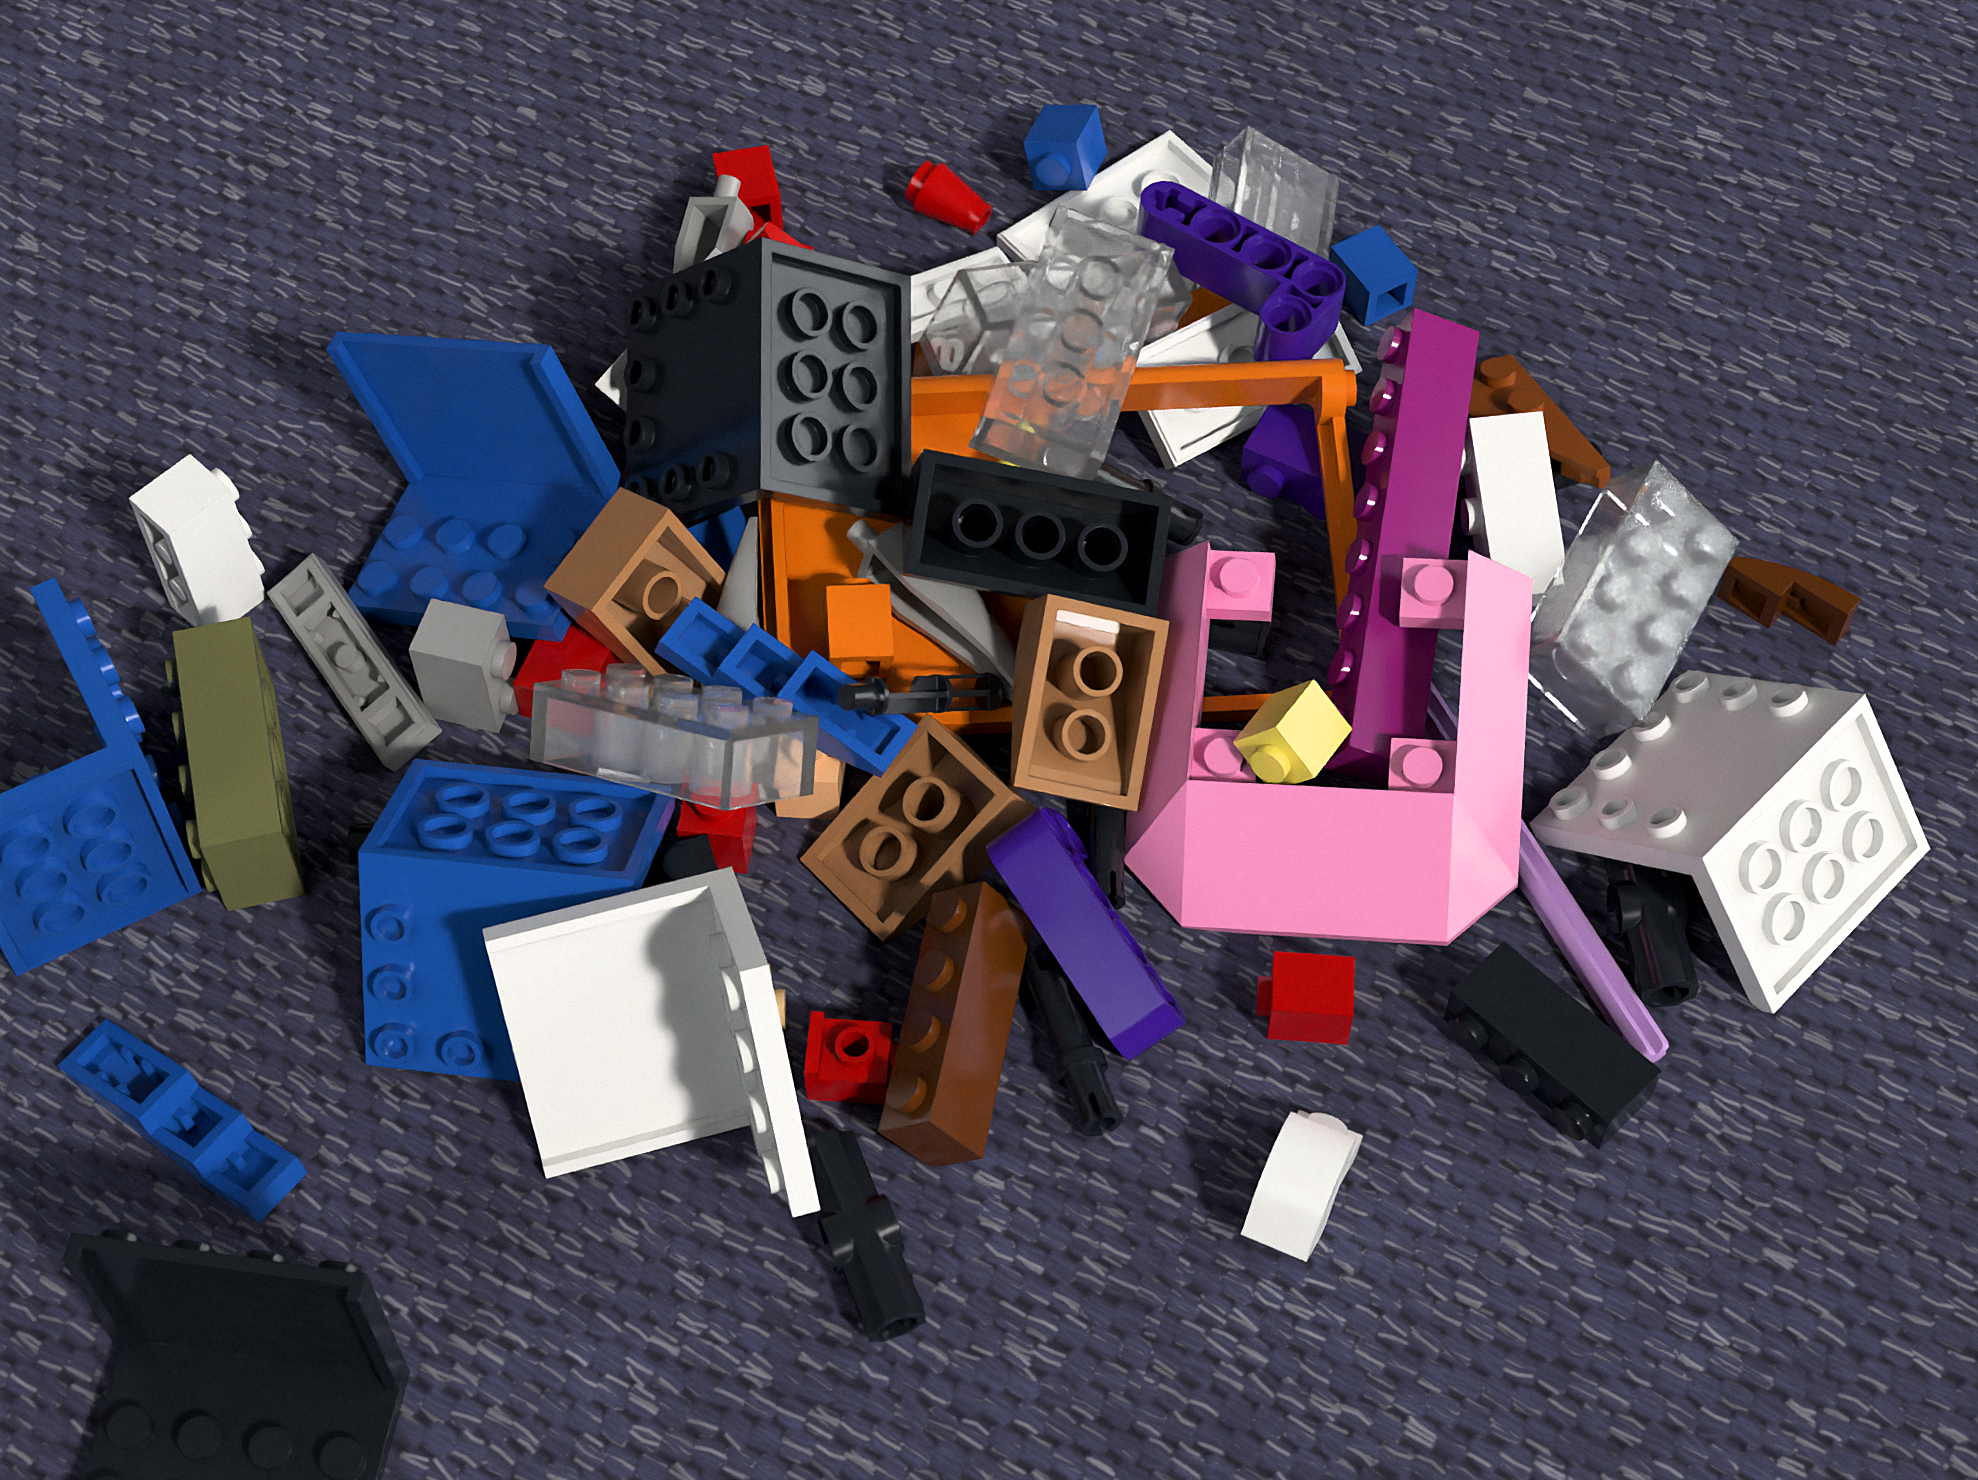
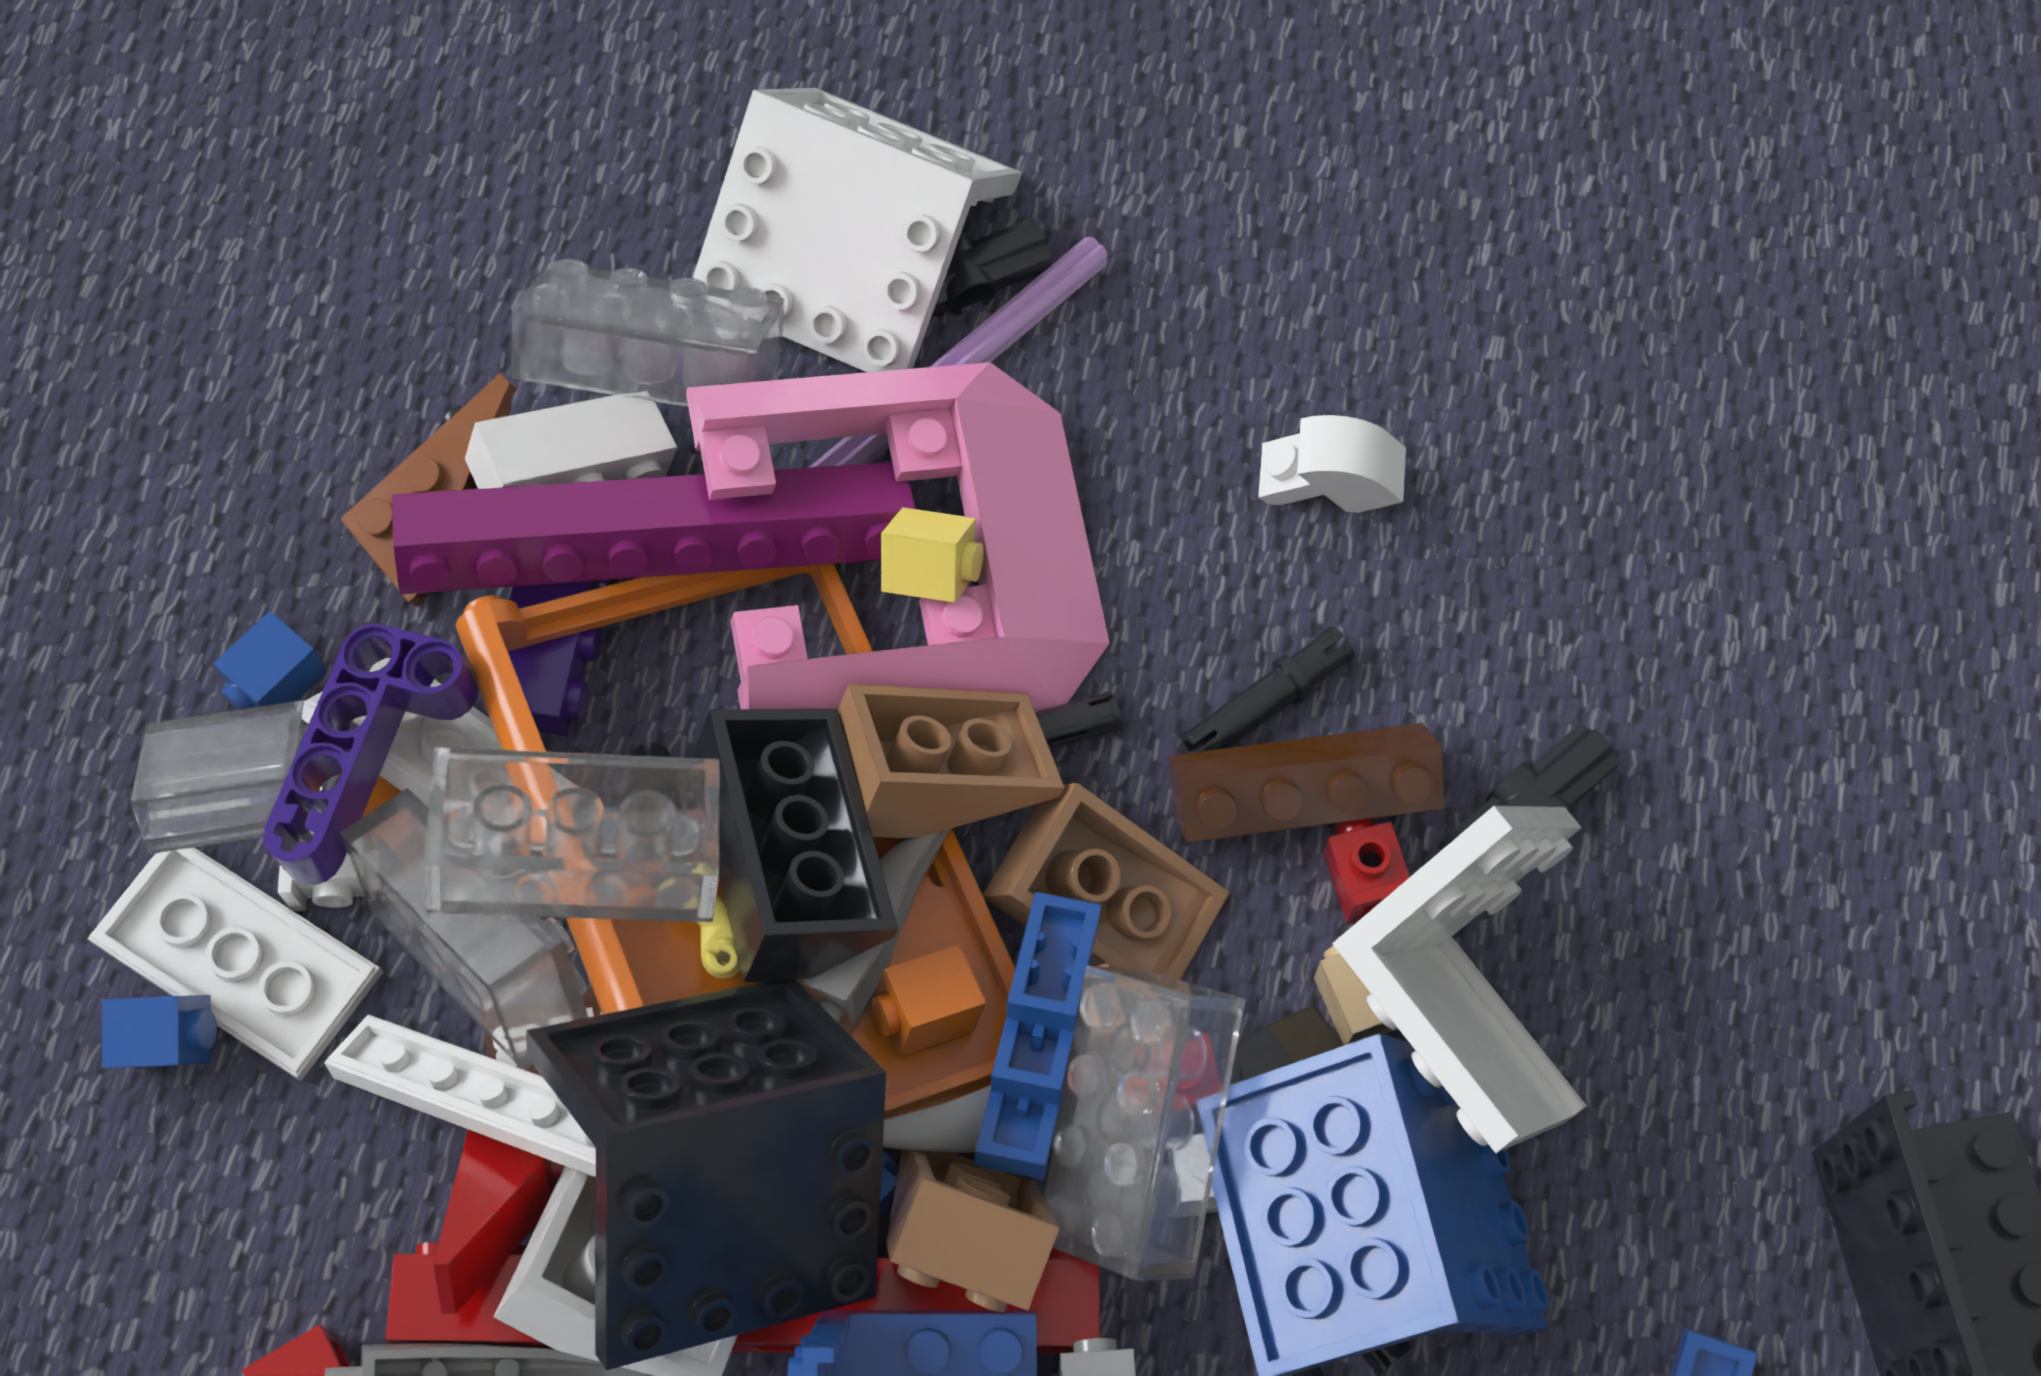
camera: 110 degrees left, 10 degrees up
(925, 695) = (999, 897): black piece -> none
(947, 198) = (255, 1149): red cone -> none
(1116, 980) = (1167, 706): dark purple beam -> none
(1307, 997) = (1155, 510): red brick -> none
(1550, 1046) = (1128, 318): black brick -> none
(1771, 589) = (585, 226): reddish brown slope -> none

